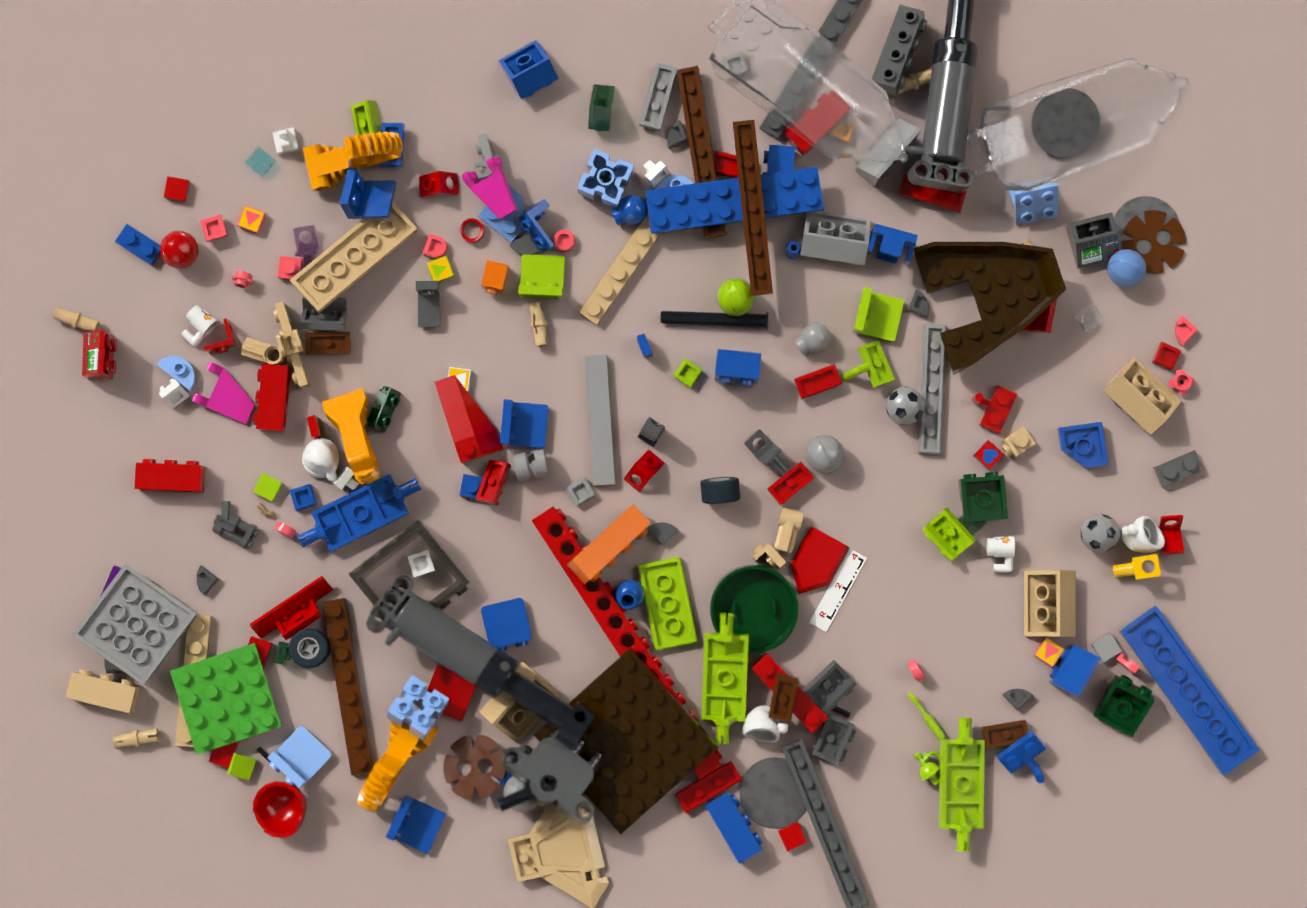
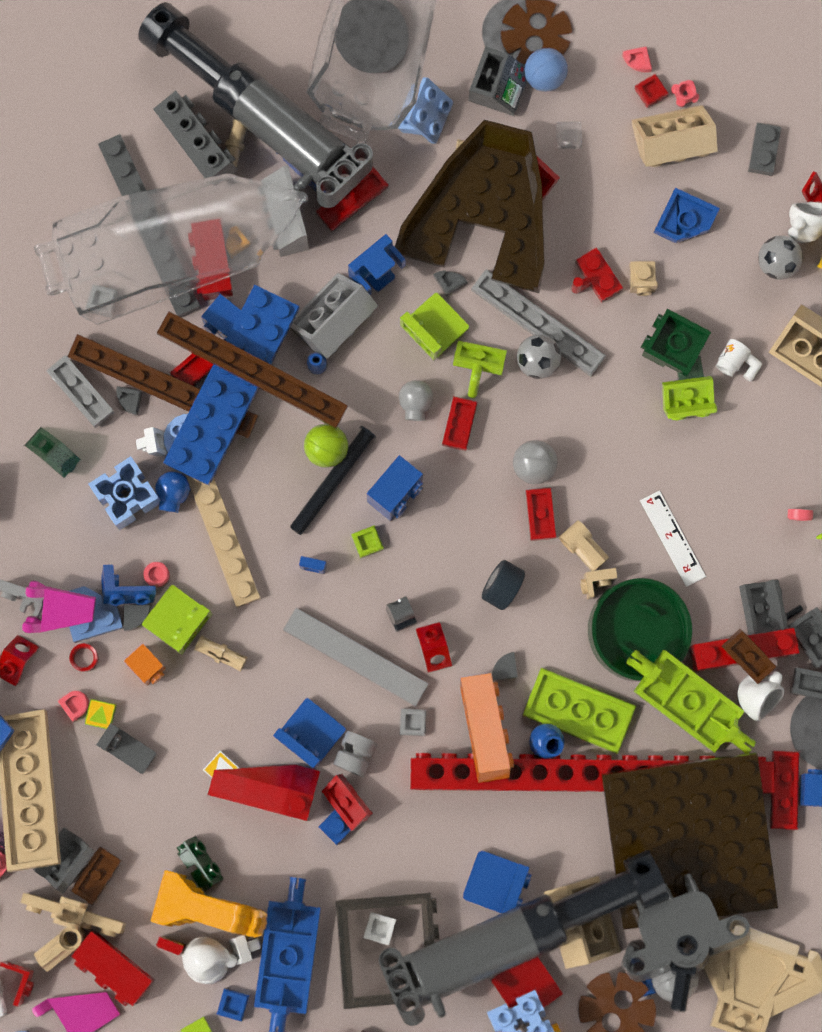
camera: 60 degrees left, 5 degrees down
(768, 453) = (498, 516): dark grey bracket -> none
(817, 560) = (631, 539): red tile -> none
(988, 454) = (636, 312): red tile -> none

